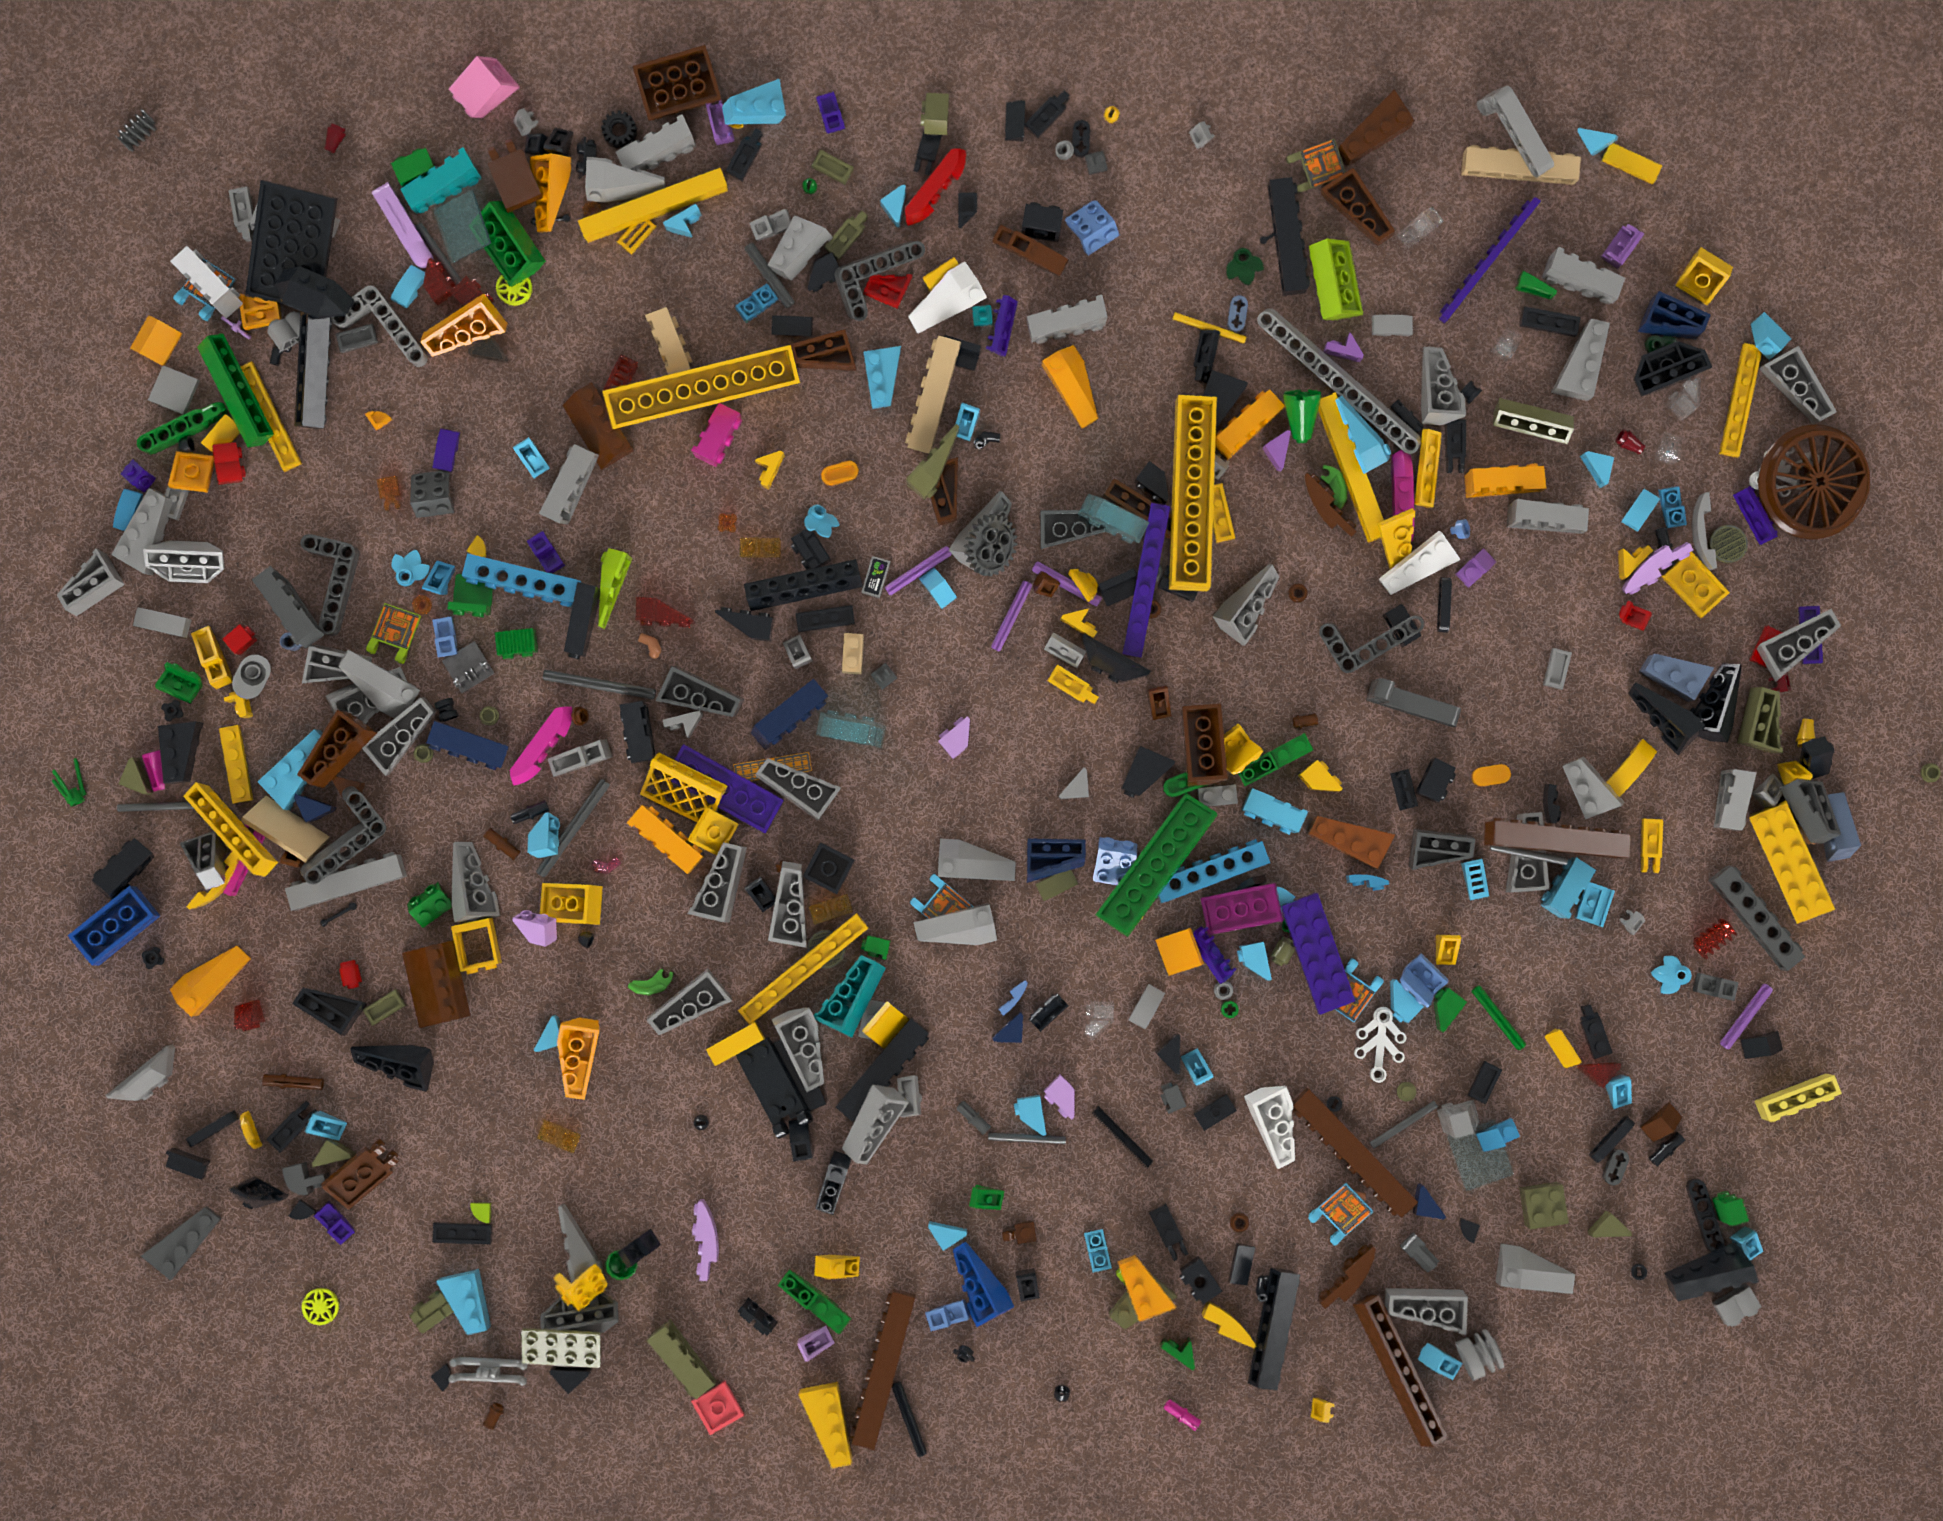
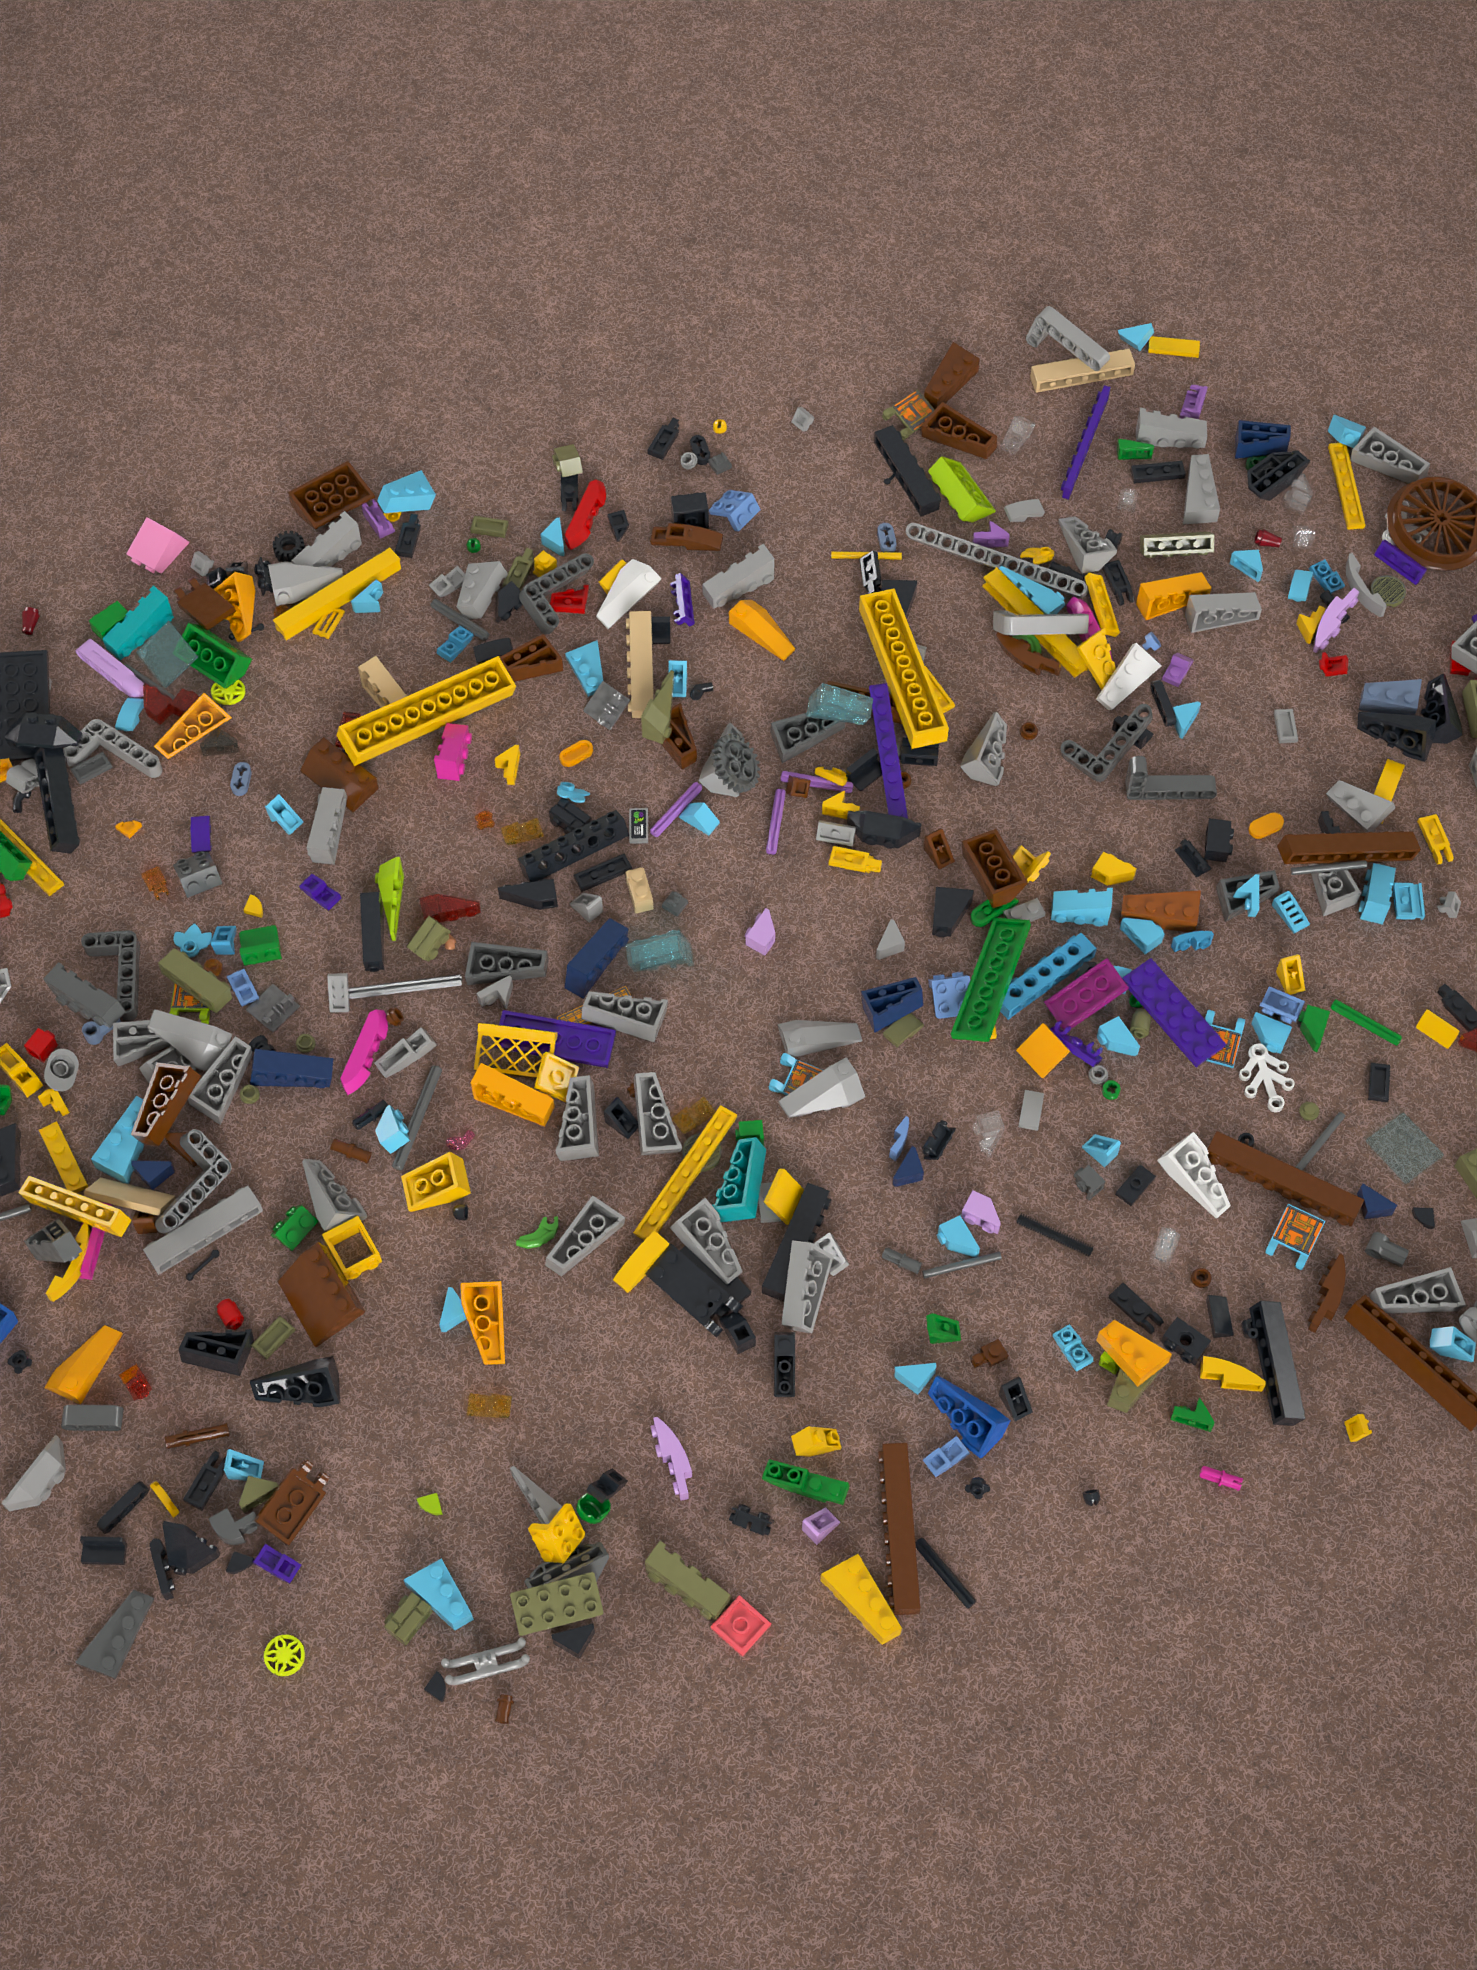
camera: 15 degrees left, 25 degrees down
(204, 1035) = (92, 1418): none -> dark grey beam
(232, 1210) = (161, 1567): none -> black hinge
(399, 619) = (195, 980): none -> olive brick
(462, 1233) = (416, 1533): black tile -> none
(475, 563) = (297, 910): dark azure brick -> none
(505, 399) = (237, 778): none -> sand blue beam
(516, 643) = (313, 971): green brick -> none
(532, 676) = (338, 992): none -> light grey tile
(536, 927) = (409, 1214): lavender slope -> none
(634, 644) = (429, 939): none -> olive brick
(637, 732) = (454, 1011): black wedge -> none
(701, 1117) = (631, 1351): black hinge -> none
(829, 868) = (680, 1075): black brick -> none
(830, 112) = (473, 488): dark purple slope -> none
(873, 239) = (544, 563): none -> yellow brick
(885, 430) = (606, 705): none -> flat silver hinge
(982, 315) = (662, 599): teal tile -> none
(1015, 121) = (638, 452): black slope -> none
(1154, 482) = (862, 676): black slope -> none
(1171, 1053) = (1071, 1144): black slope -> none
(1215, 1188) = (1165, 1248): none -> clear slope
(1245, 269) = (879, 504): dark green plate -> none
(1248, 424) = (931, 612): light orange wedge -> none
(1276, 759) = (1064, 867): green slope -> none
(1277, 450) = (963, 626): medium lavender slope -> none
(1302, 412) = (974, 590): green cone -> none
(1305, 721) = (1078, 829): reddish brown pin -> none
(1323, 858) = (1142, 933): none -> medium azure slope
(1349, 483) = (1039, 624): none -> light grey beam
(1386, 386) = (1039, 555): none -> yellow plate
(1442, 857) = (1250, 892): none -> medium azure slope
(1458, 629) = (1185, 716): none -> medium azure slope
(1459, 1119) = (1367, 1112): light grey wedge -> none
(1497, 1135) = (1412, 1122): dark azure slope -> none
(1695, 585) = (1375, 629): yellow tile -> none
(1704, 276) = (1271, 405): yellow slope -> none

